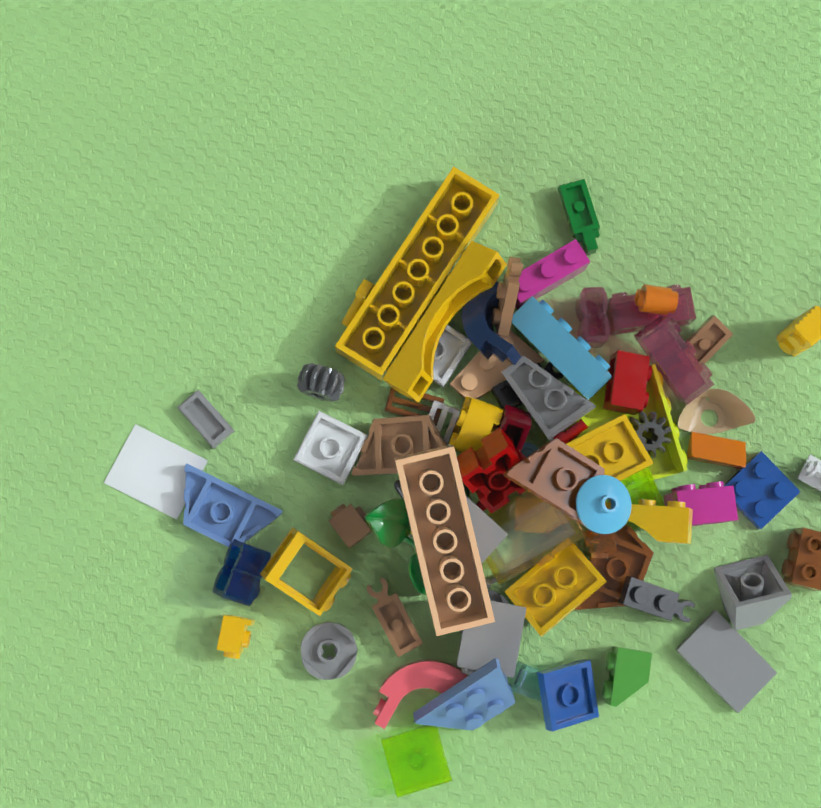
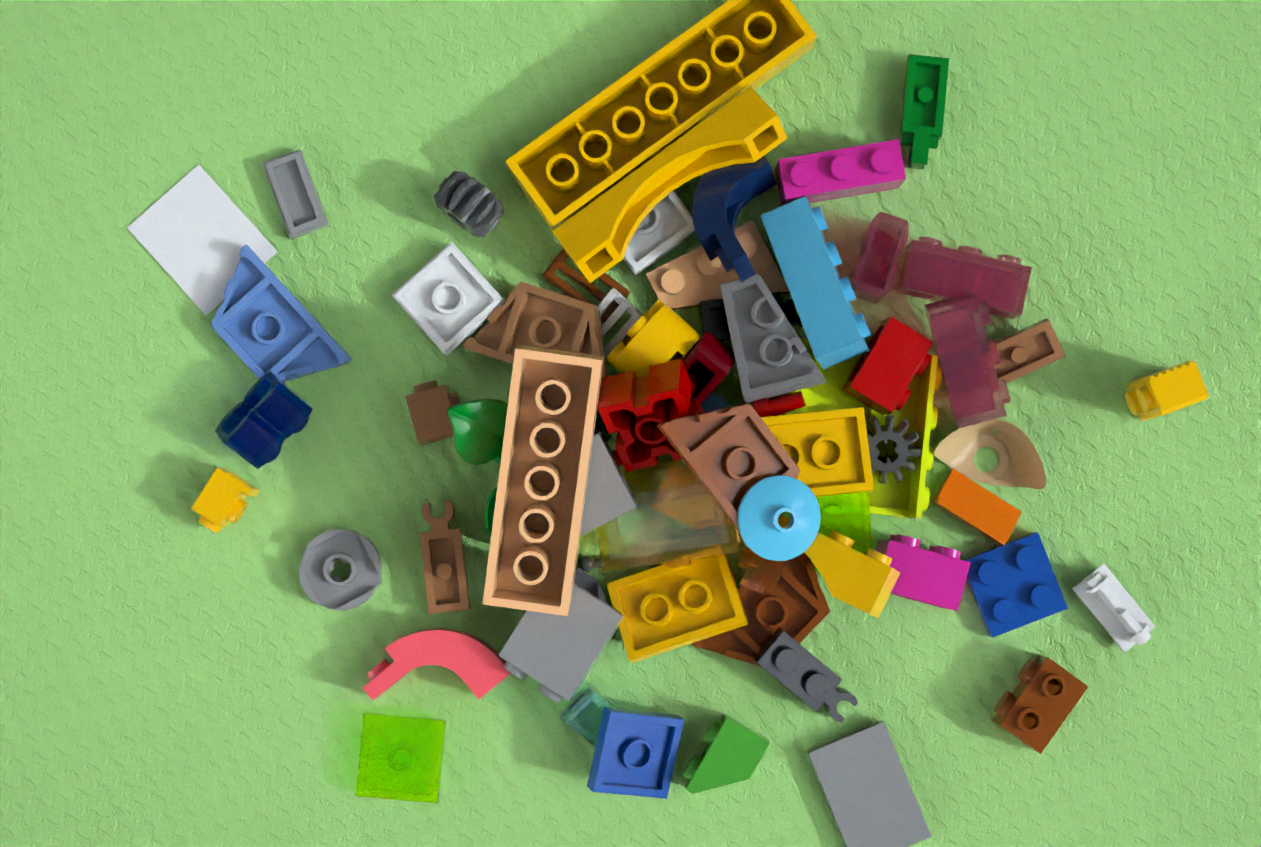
camera: 25 degrees right, 5 degrees up
(283, 556) = (325, 420): yellow window -> none
(361, 295) = (571, 103): yellow bar -> none
(470, 700) = (499, 708): medium blue wing -> none
(507, 295) = (769, 179): medium nougat plate -> none
(656, 299) = (974, 267): orange brick -> none
(751, 591) = (941, 714): light grey slope -> none

